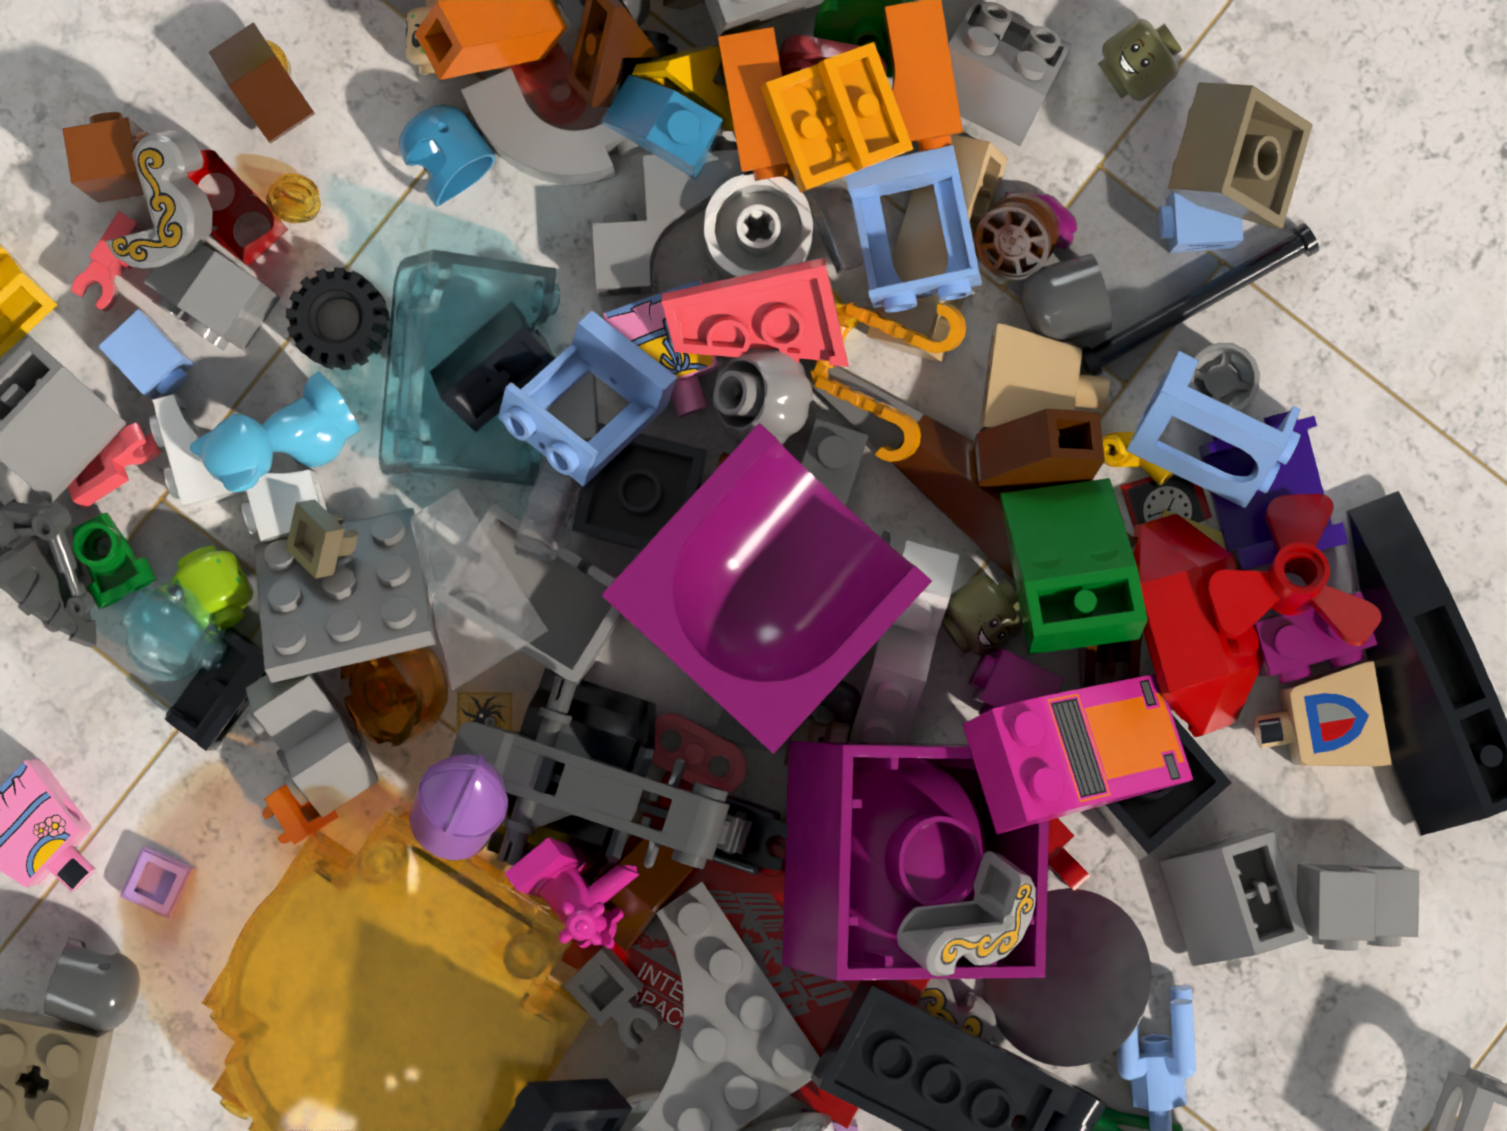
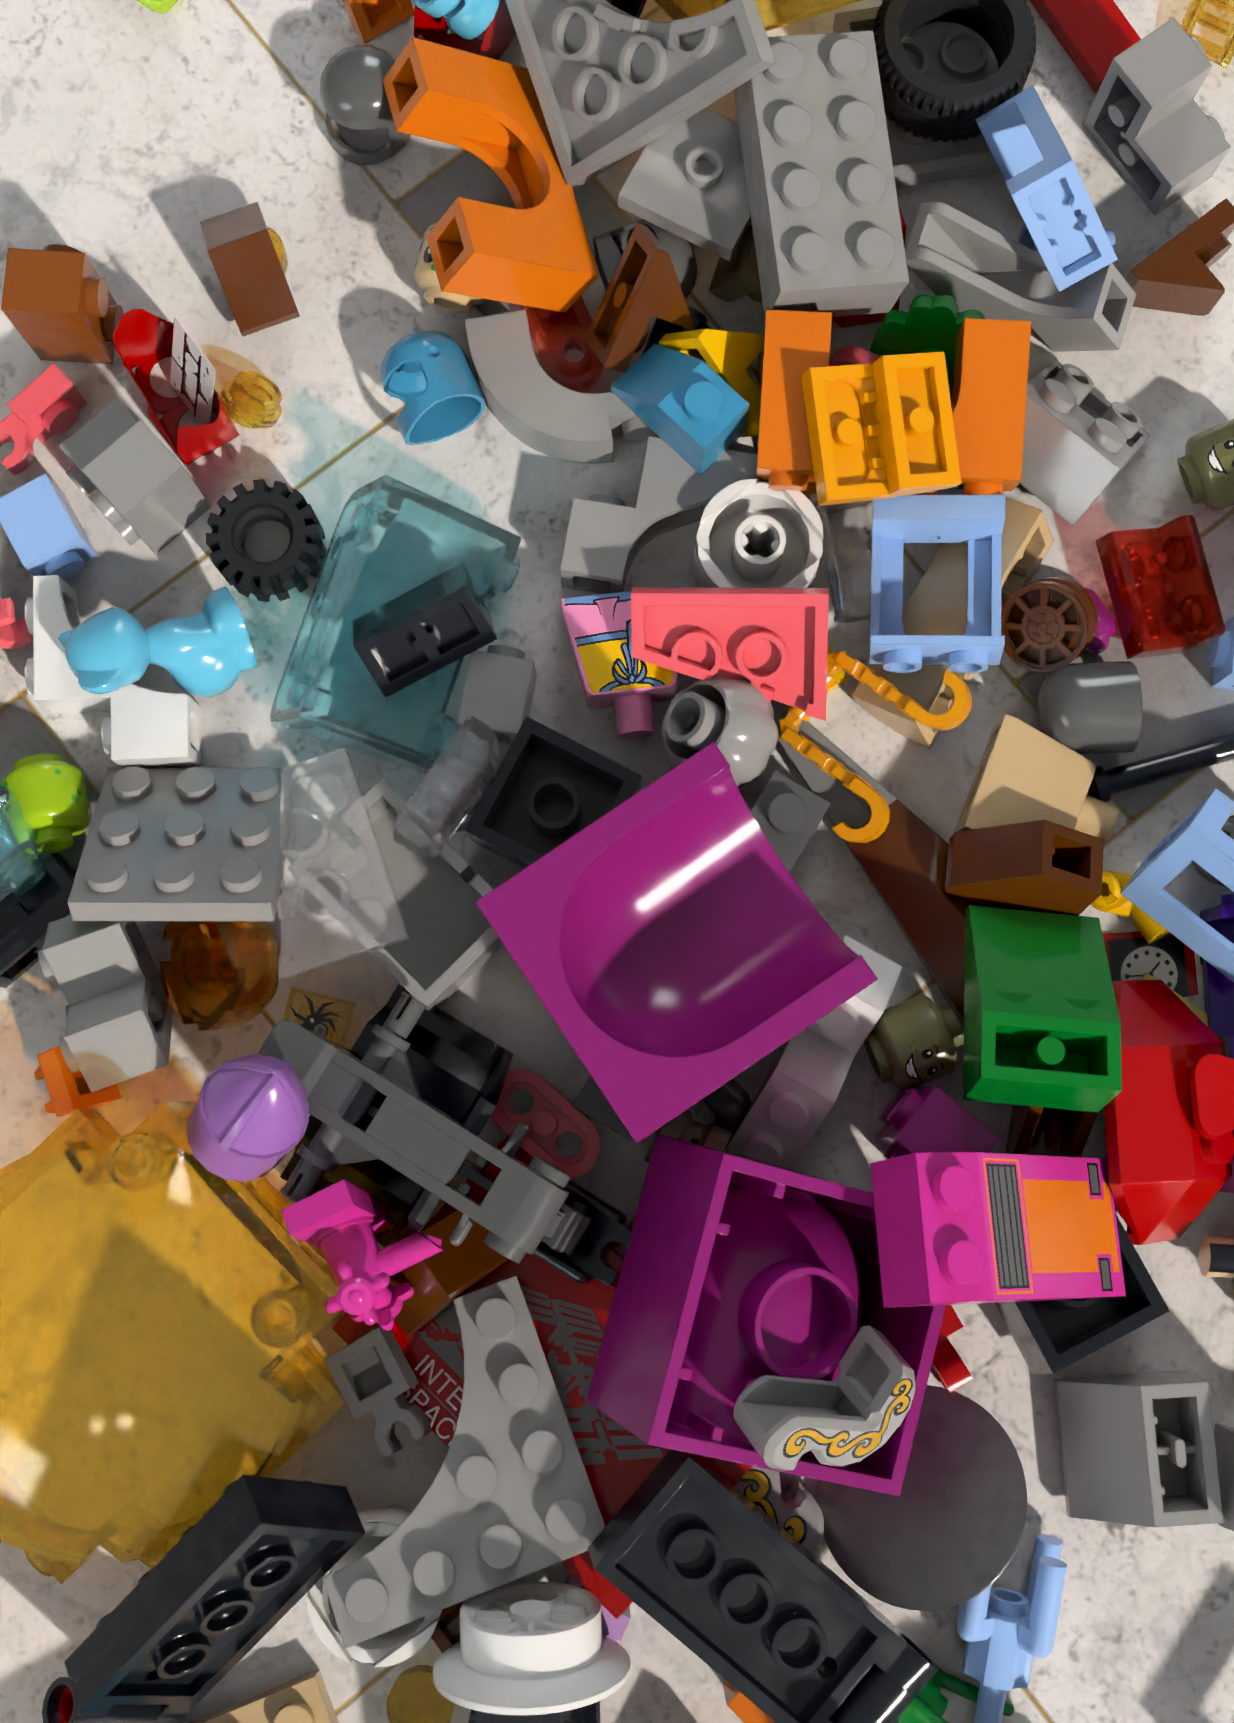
camera: 15 degrees right, 5 degrees down
(175, 203) = (111, 361): light grey animal -> none
(240, 194) = (191, 375): none -> white sticker
(318, 538) = (175, 771): dark tan tile -> none
(616, 362) = (559, 650): light blue panel -> none
(1105, 182) = (1160, 588): none -> clear red bracket

